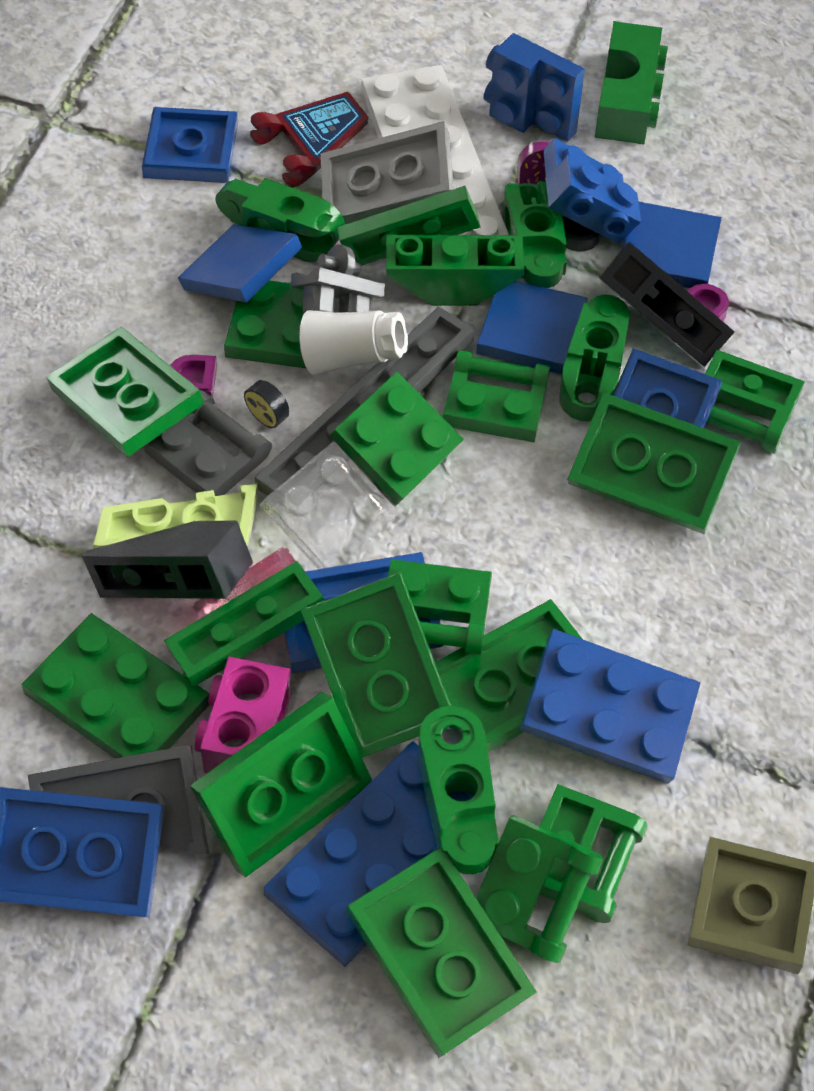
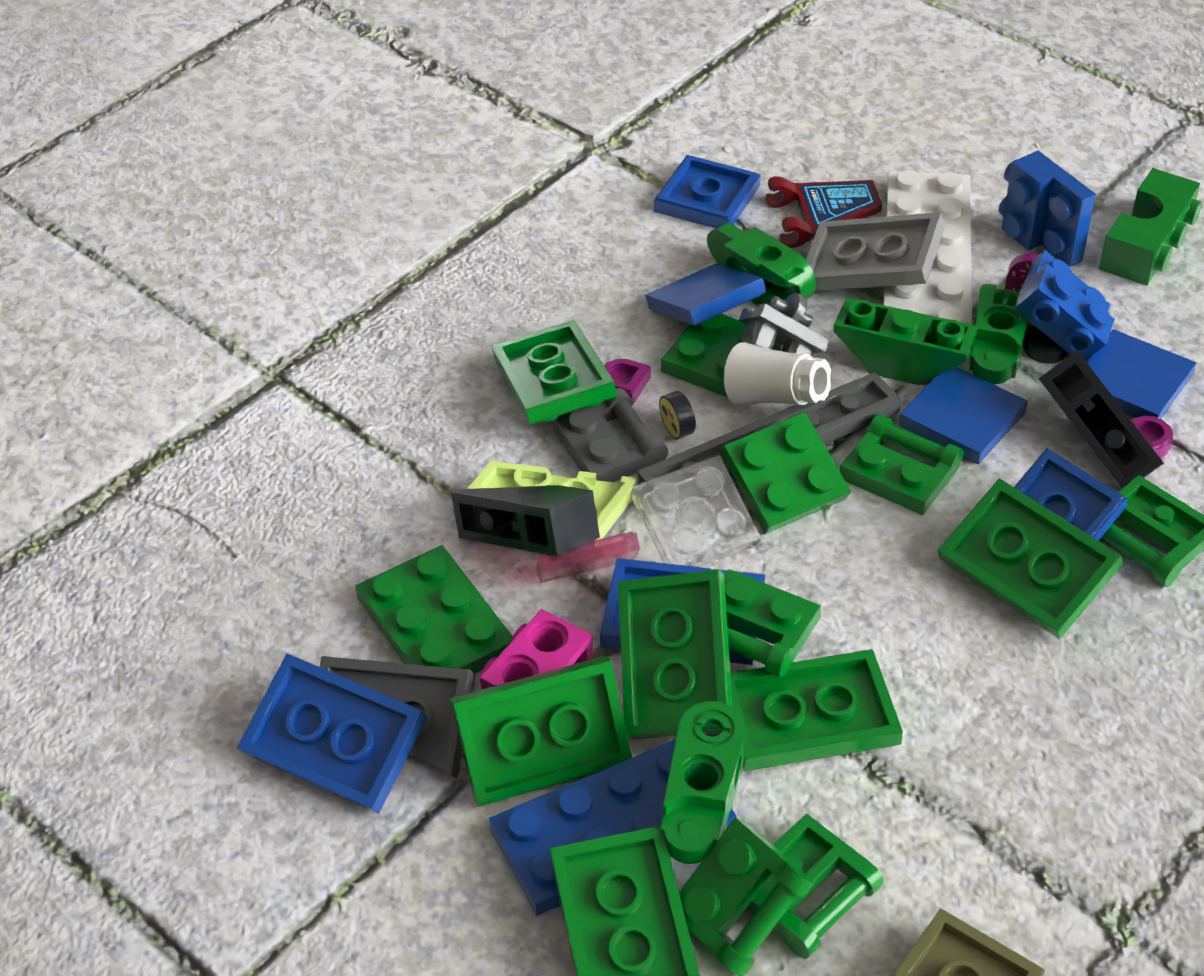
camera: 25 degrees right, 10 degrees down
(243, 623) = (565, 585): green plate -> none
(437, 215) = (902, 289): green plate -> none
(594, 355) = (1011, 445): green piece -> none
(610, 706) = (890, 760): blue plate -> none

